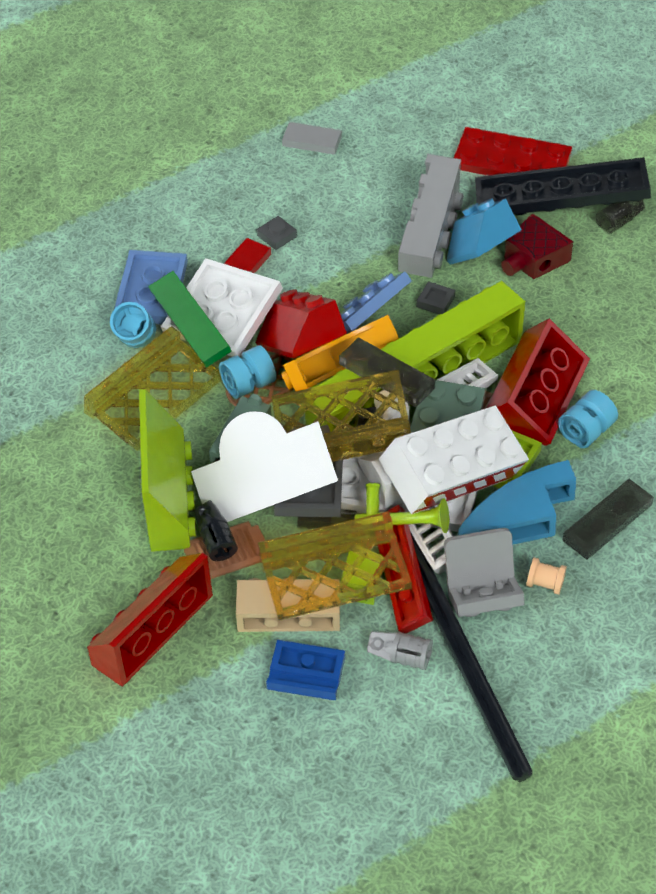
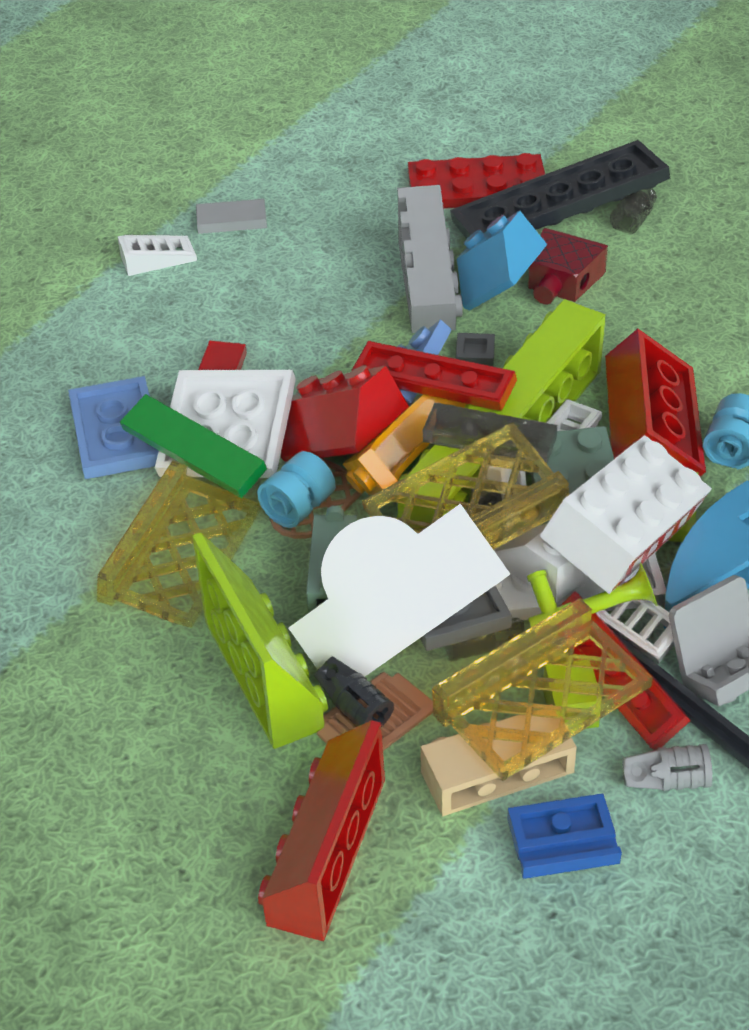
camera: 20 degrees left, 5 degrees down
(133, 324) = (119, 472): medium azure wheel -> none
(229, 149) = (154, 252): none -> white slope
(276, 232) = (242, 327): dark grey plate -> none
(375, 316) = (441, 375): none -> red tile

